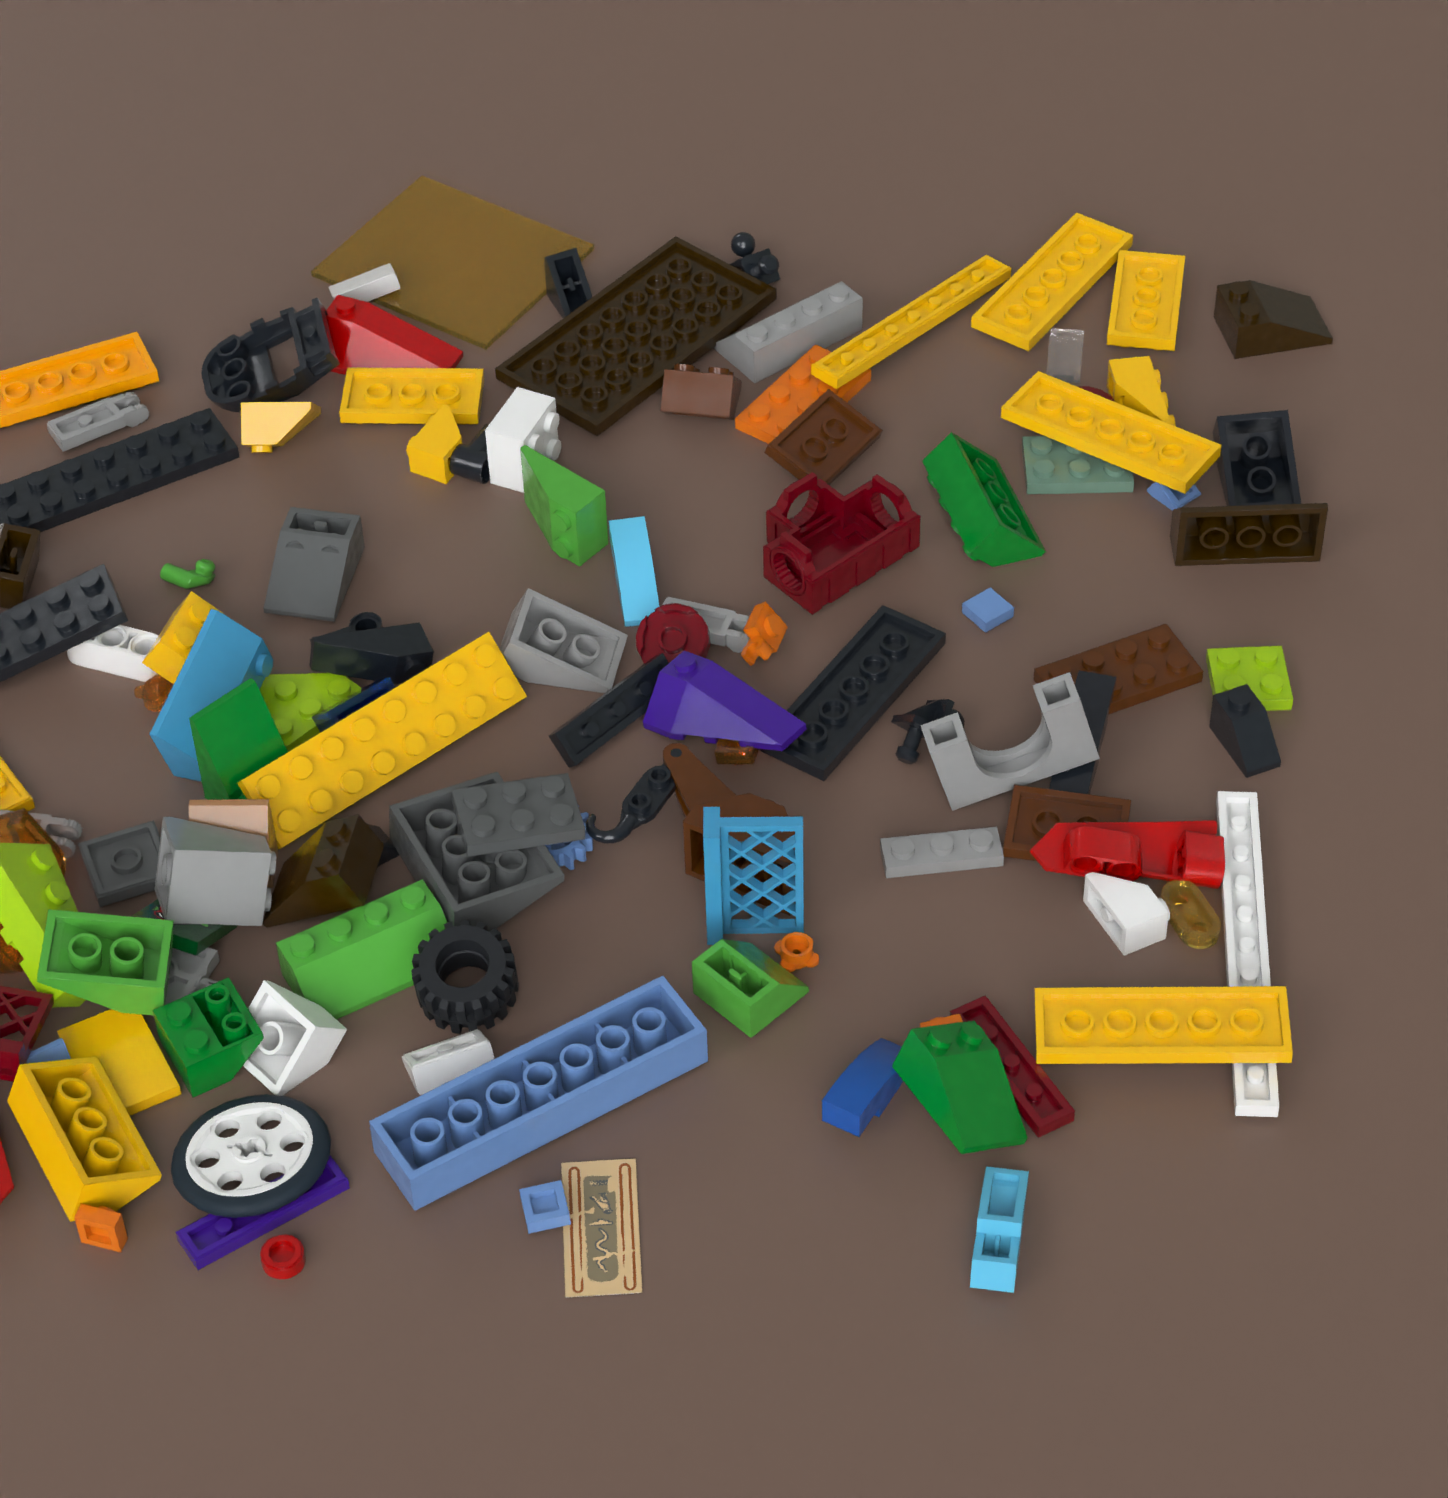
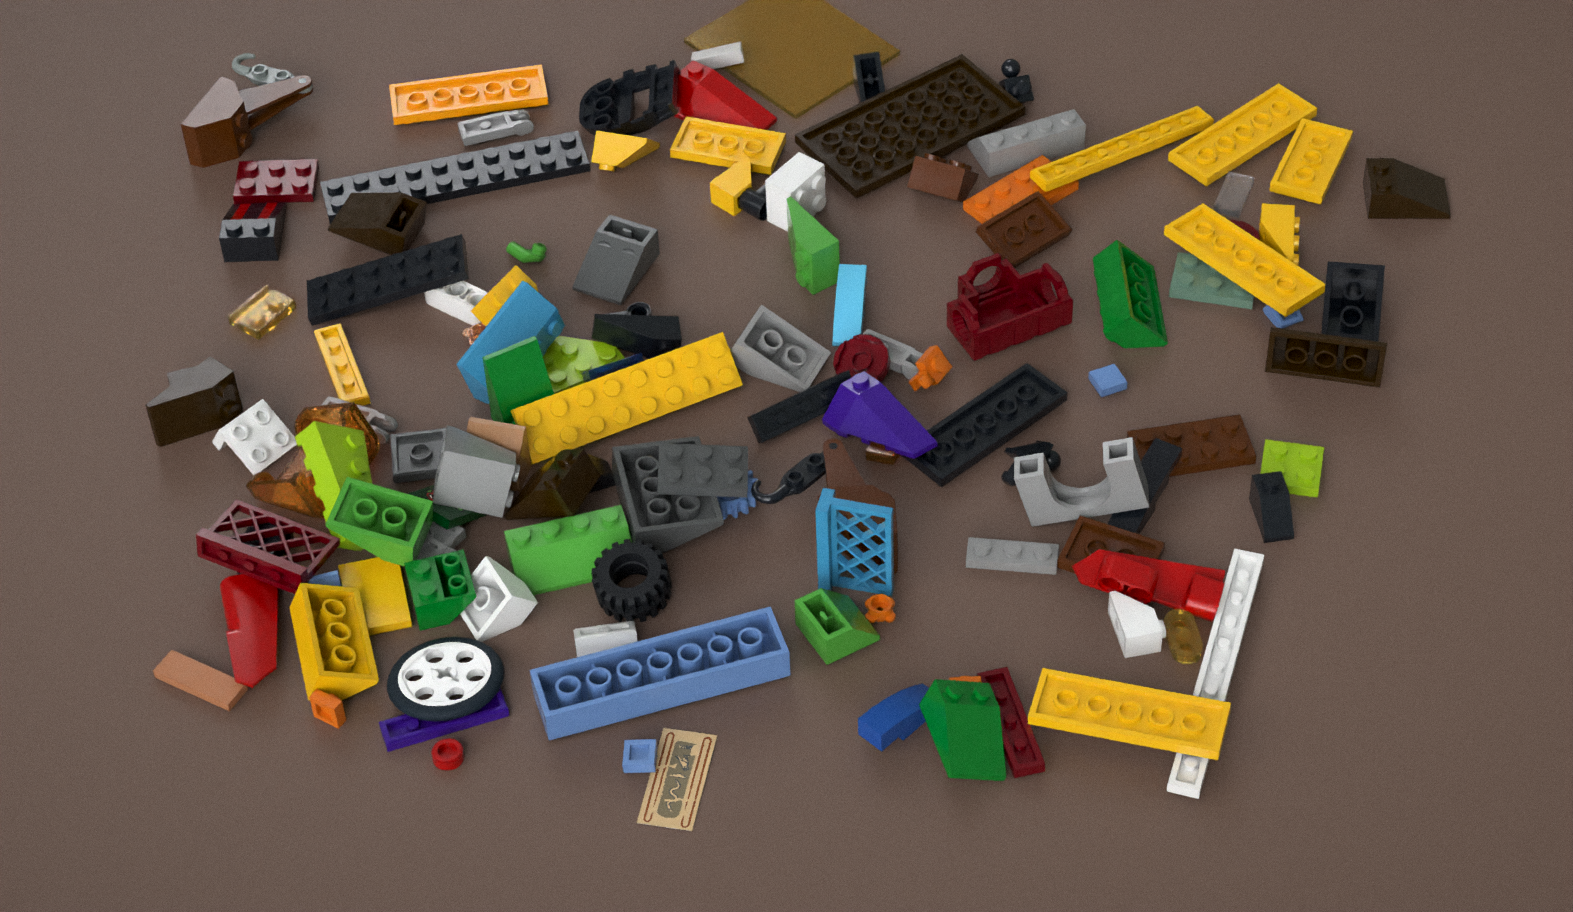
camera: 15 degrees right, 0 degrees up
(999, 1229) = (961, 838): medium azure slope -> none

